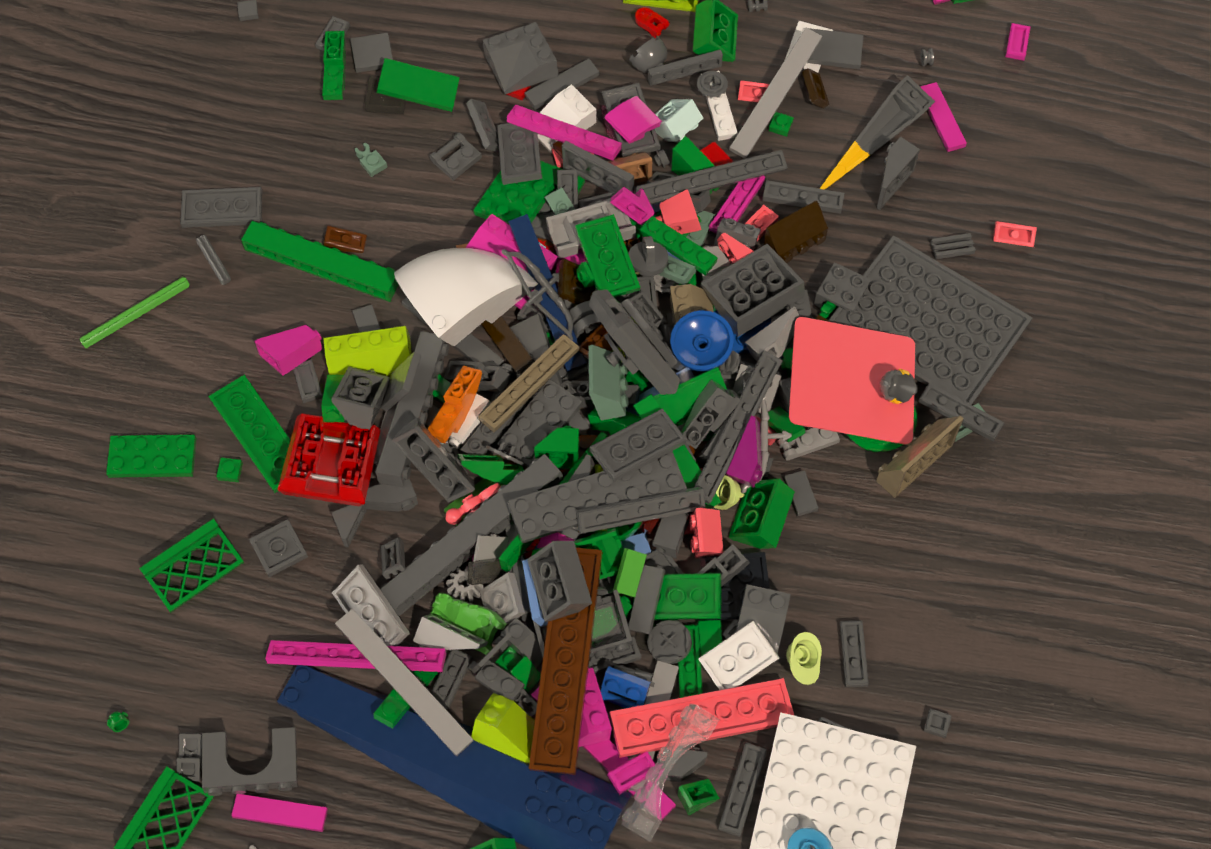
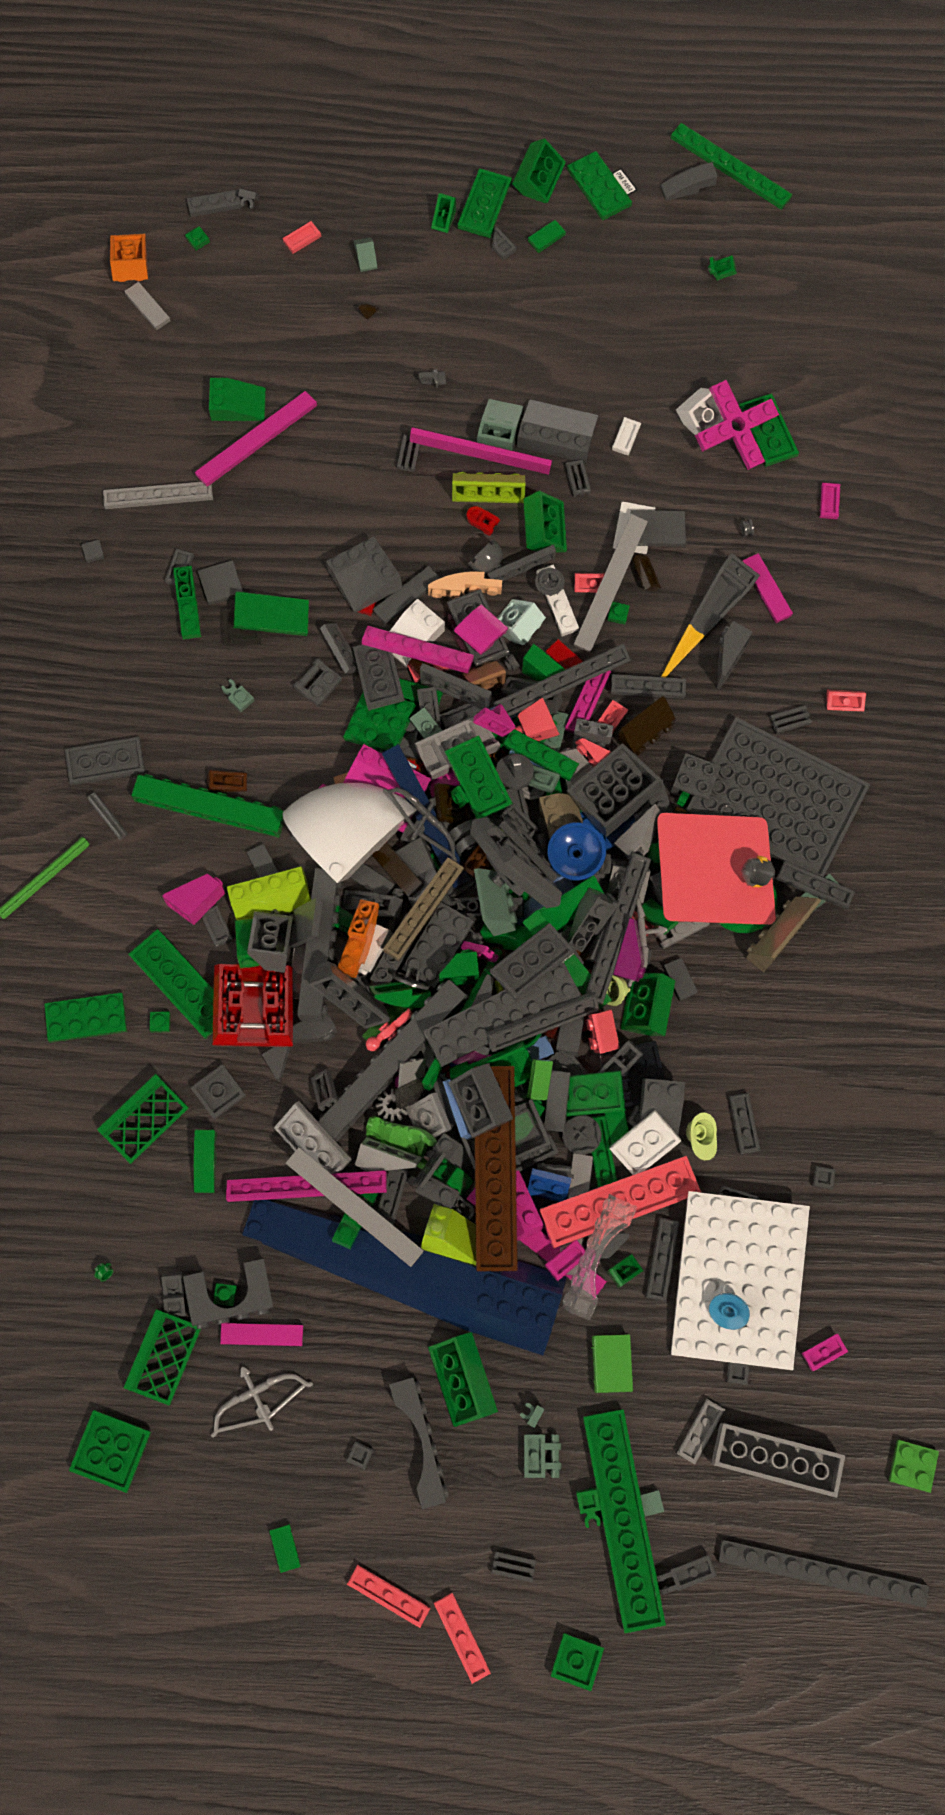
camera: 10 degrees left, 10 degrees up
(246, 763) = (225, 1295): none -> green plate
(250, 617) = (205, 1161): none -> green slope
(586, 433) = (482, 951): none -> dark pink tile
(620, 76) = (457, 584): none -> light nougat slope

